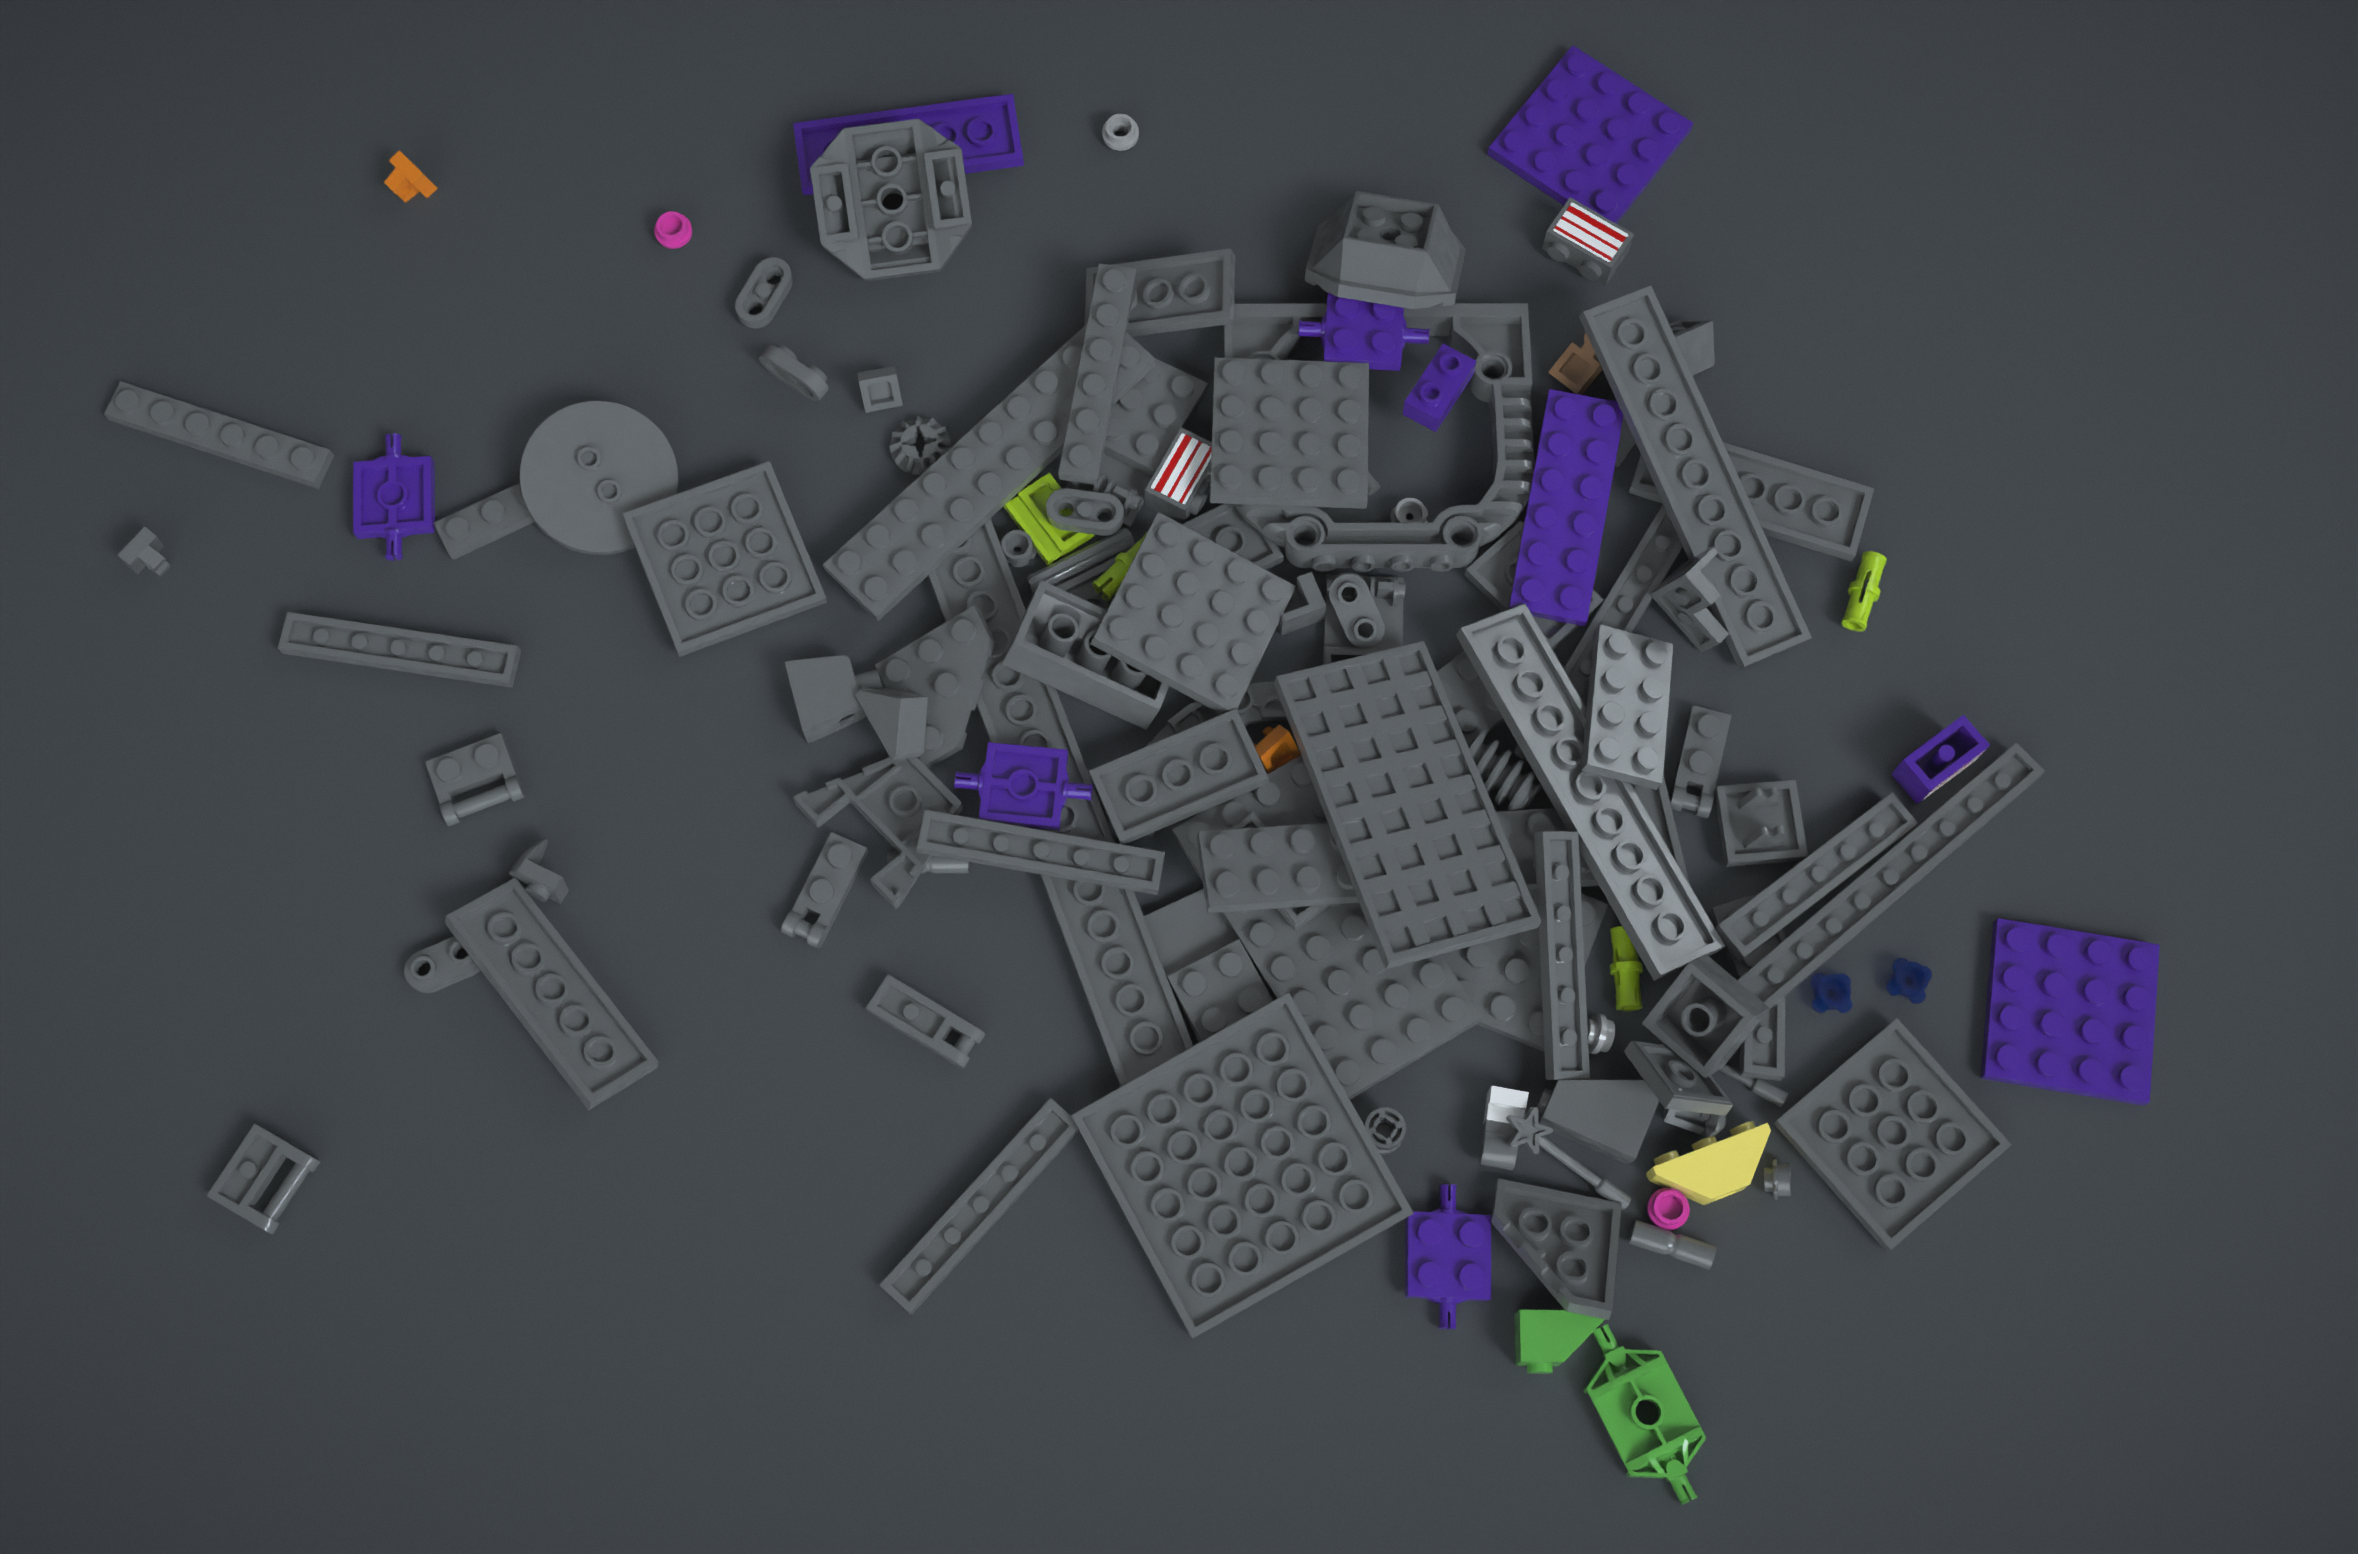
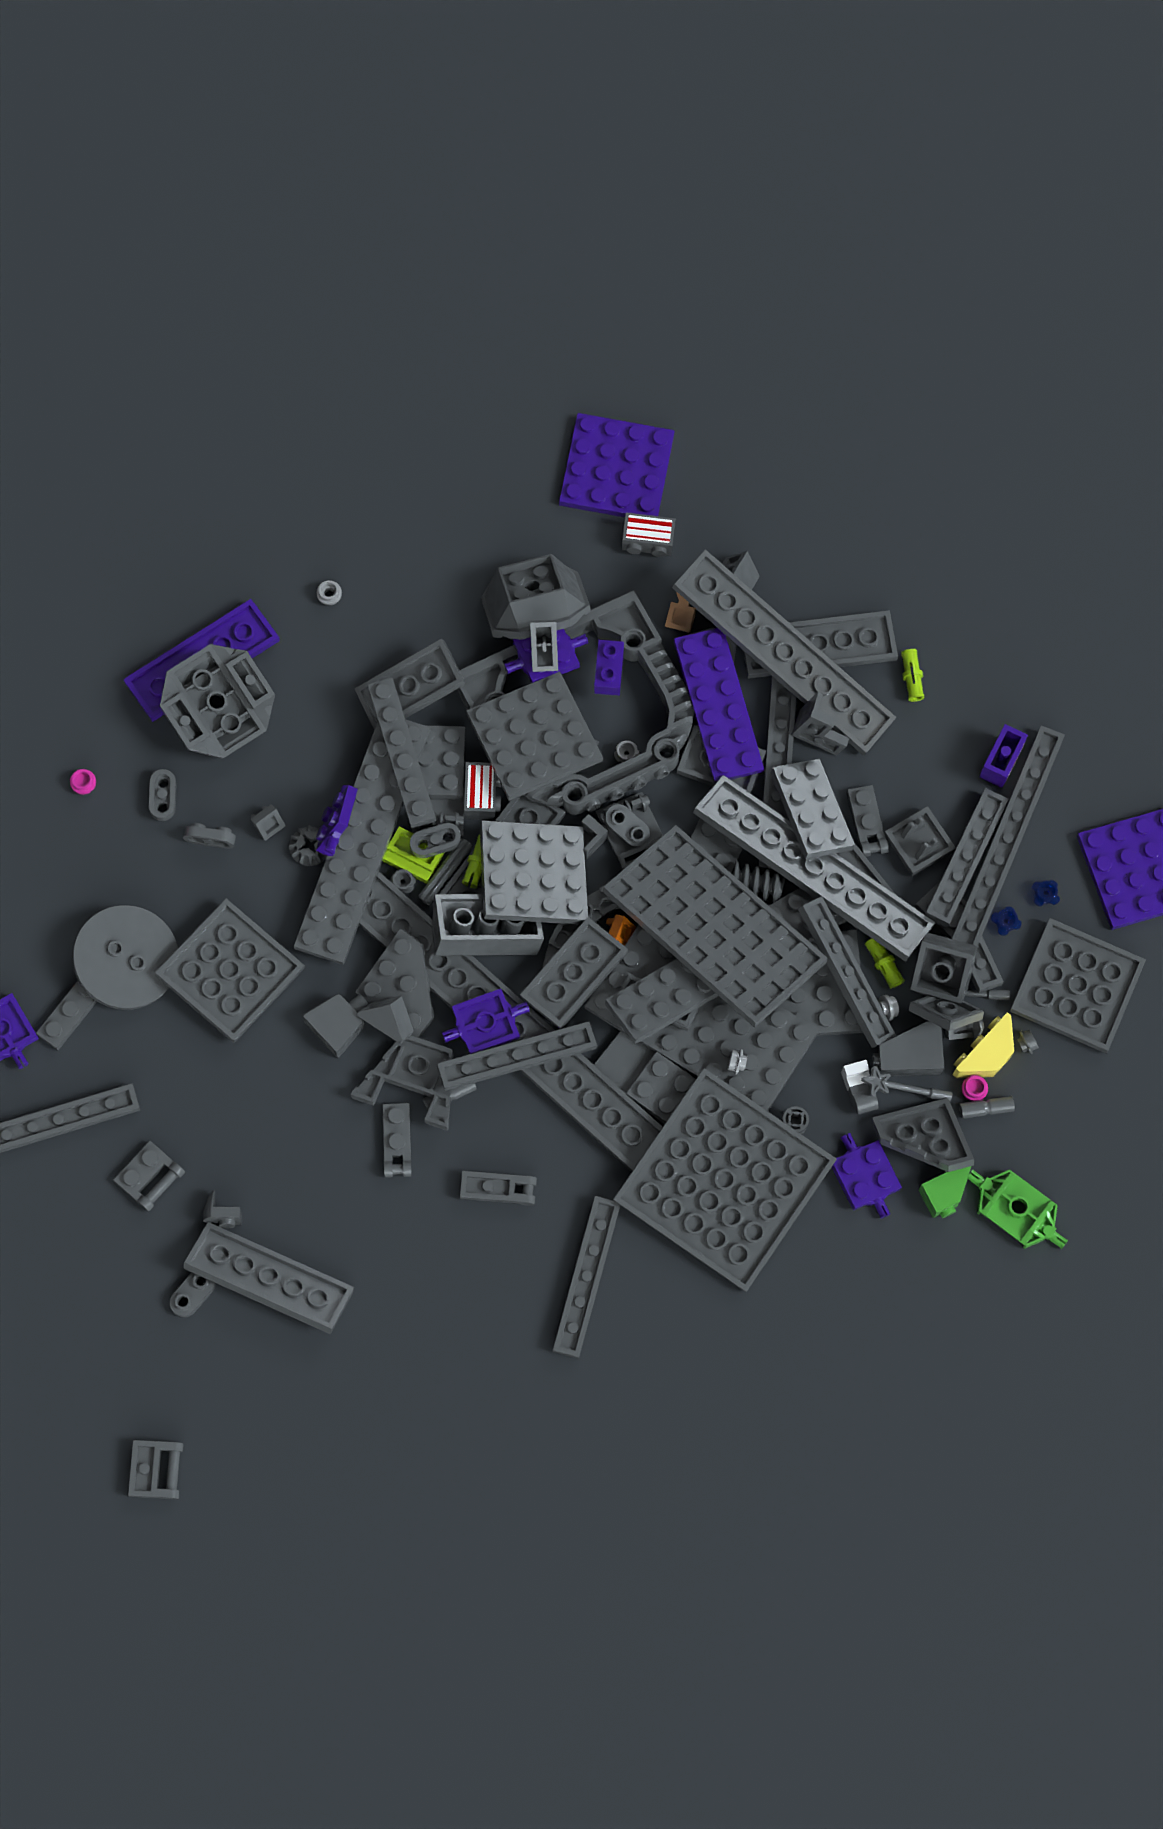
camera: 30 degrees left, 0 degrees up
(963, 422) = (335, 820): none -> dark purple plate
(1340, 1005) = (737, 1061): none -> light grey plate
(1362, 314) = (544, 645): none -> dark grey slope

